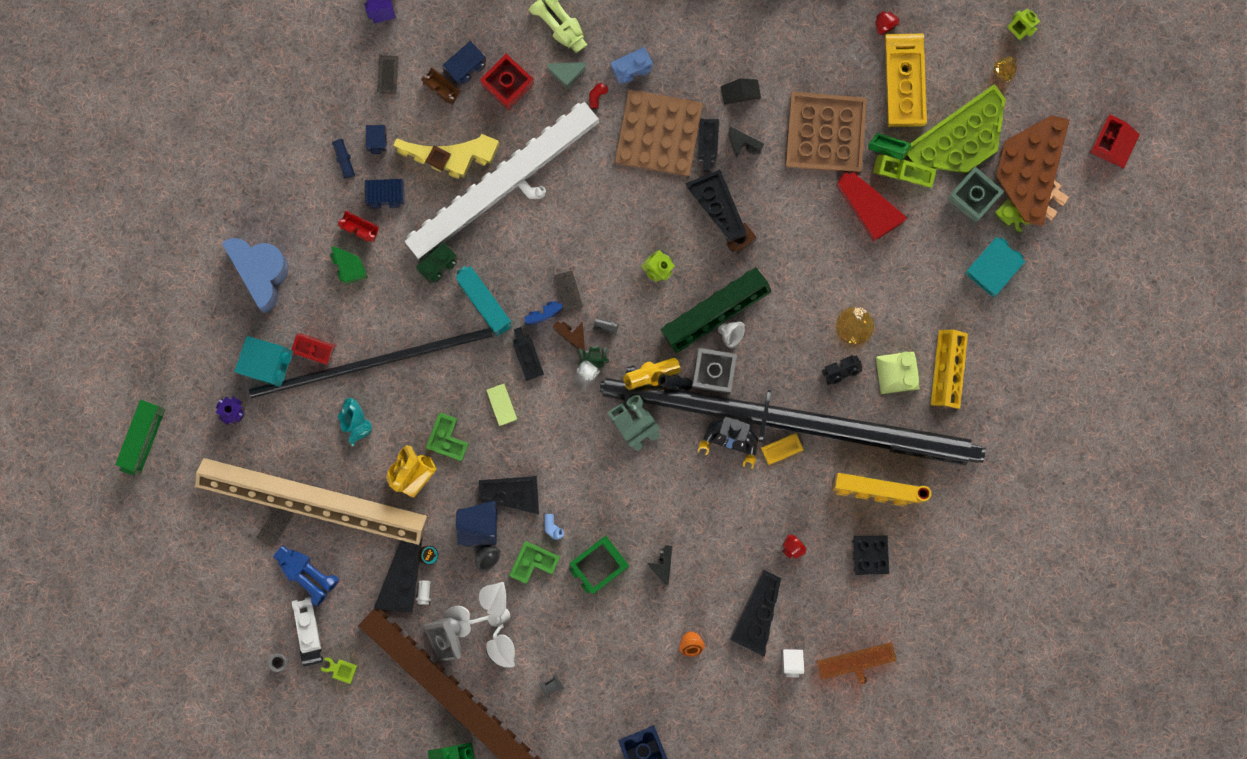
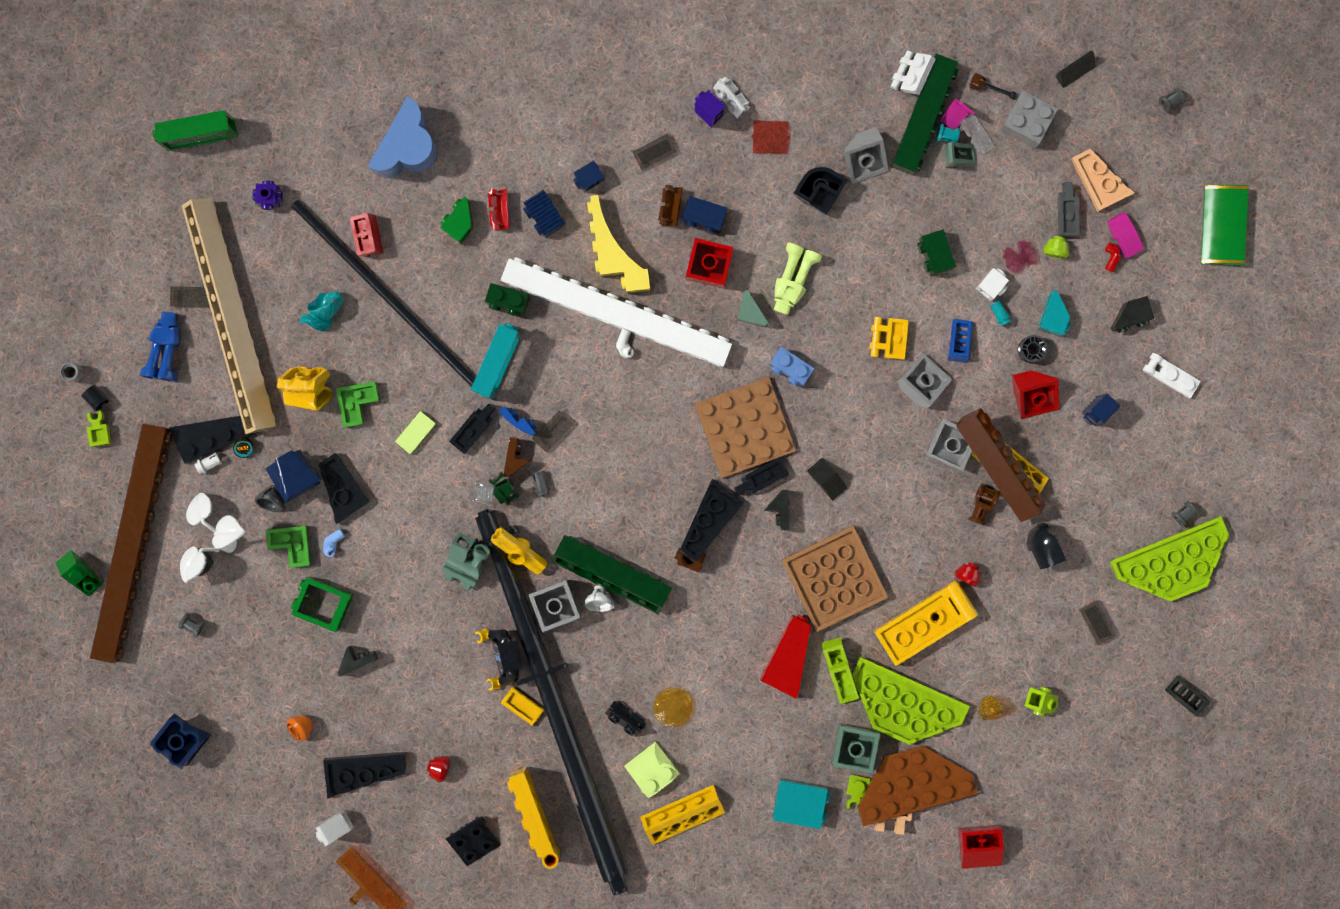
camera: 60 degrees right, 5 degrees up
(263, 361) = (327, 198): teal brick -> none
(306, 625) = (117, 377): white plate -> none
(343, 158) = (553, 158): dark blue pin -> none
(438, 158) = (601, 243): reddish brown tile -> none
(444, 638) = (176, 506): light grey slope -> none
(595, 93) = (747, 348): red arm -> none
(658, 266) = (620, 499): lime brick -> none
(675, 382) = (523, 576): black pin -> none
(889, 146) = (854, 644): green tile -> none

